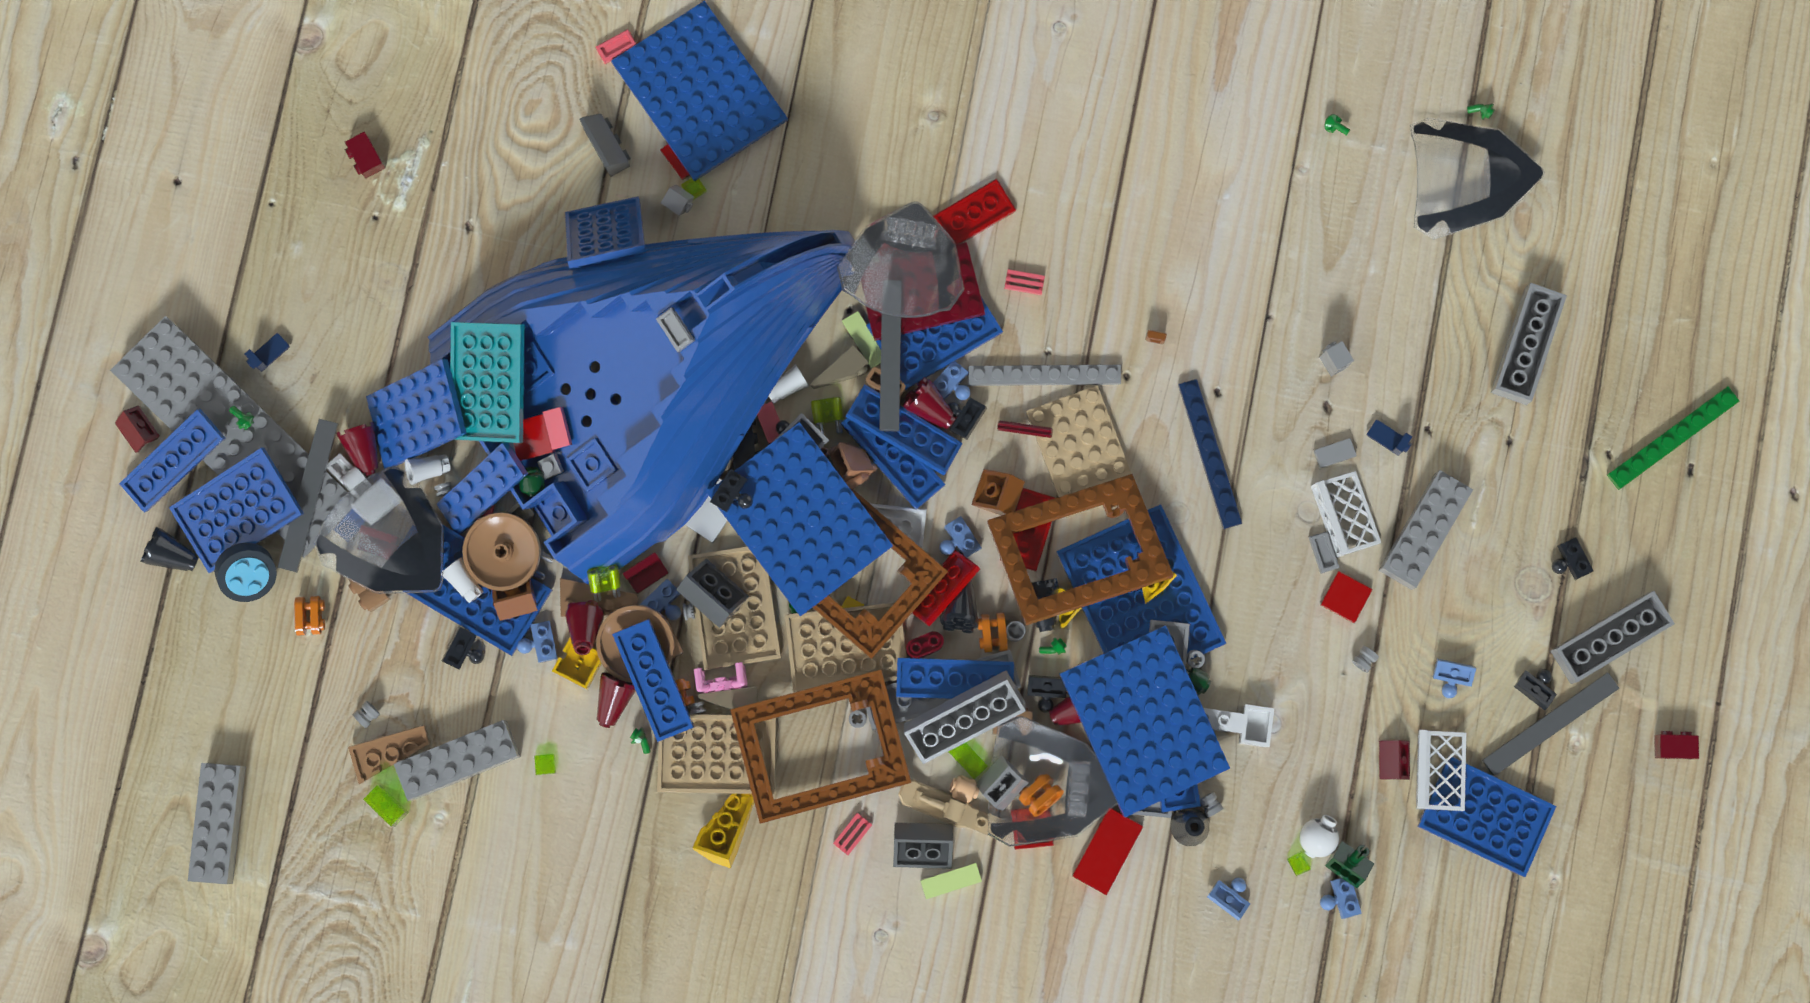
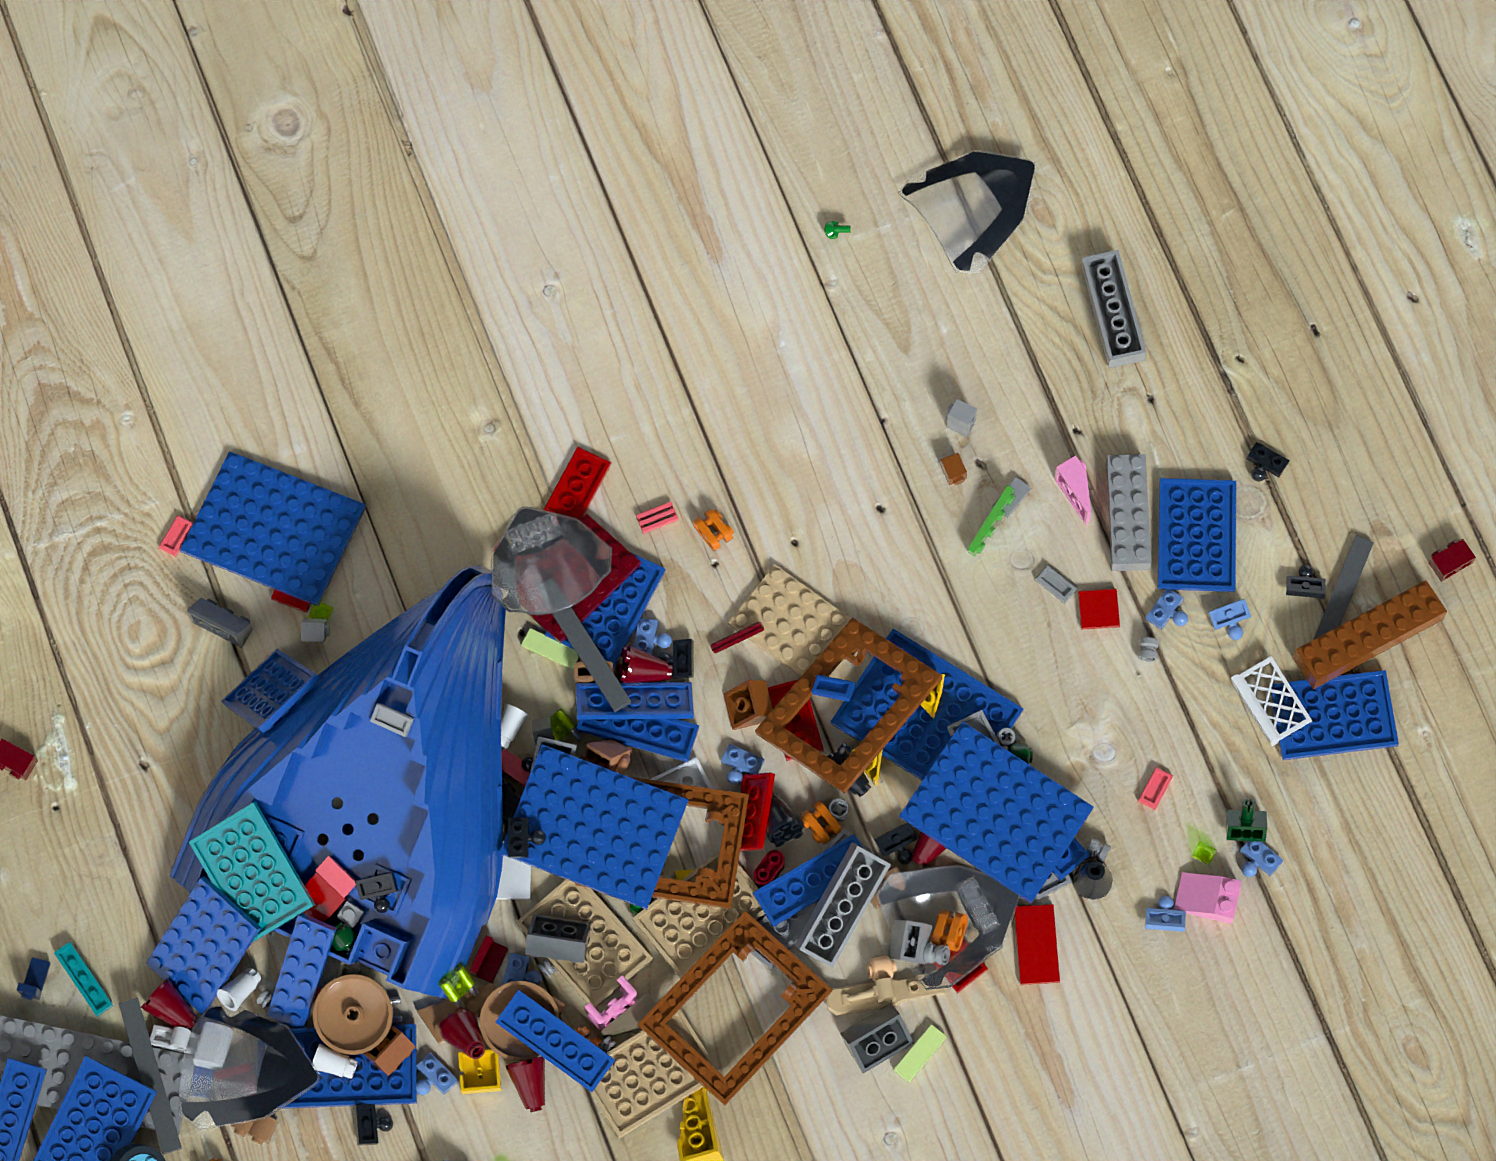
camera: 25 degrees left, 10 degrees down
(245, 420) = (54, 1044): green plate -> none
(307, 377) = (83, 979): none -> teal plate
(585, 460) = (377, 887): none -> black plate
(639, 736) = (572, 1101): green plate -> none
(811, 407) = (542, 728): none -> dark grey panel
(842, 847) = (810, 1050): coral tile -> none
(844, 368) = (549, 683): dark tan slope -> none
(857, 725) = (747, 964): light grey bush -> none
(968, 760) = (868, 942): clear neon green plate -> none
(1017, 808) = (936, 953): none -> light grey wheel
(1044, 375) = (724, 583): light grey plate -> none
(1058, 647) = (883, 800): green plate -> none
(1072, 330) = (723, 531): none -> orange brick
(1075, 526) = (833, 688): none -> blue tile
(1155, 337) = (798, 494): dark orange tile -> none
(1209, 454) = (907, 562): dark blue plate -> none
(1253, 724) = (1088, 761): white plate -> none
(1277, 903) = (1208, 896): none -> bright pink slope
(1293, 781) = (1155, 788): none -> coral tile
(1301, 398) = (953, 469): none -> dark orange brick
(1311, 461) = (988, 528): none -> bright green plate
(1319, 837) = (1206, 817): white brick -> none
(1330, 517) = (1046, 554): white fence -> none
(1389, 438) = (1048, 456): dark blue bracket -> none
(1394, 760) = (1227, 717): dark red panel -> none
(1395, 476) = (1072, 480): none -> bright pink slope
(1403, 633) = (1165, 609): none -> medium blue plate
(1472, 586) = (1197, 535): none -> blue plate
(1485, 110) = (953, 142): green plate -> none
(1562, 767) = (1369, 634): none -> dark orange brick
(1612, 637) = (1339, 503): light grey brick -> none
(1673, 438) = (1283, 313): green plate -> none

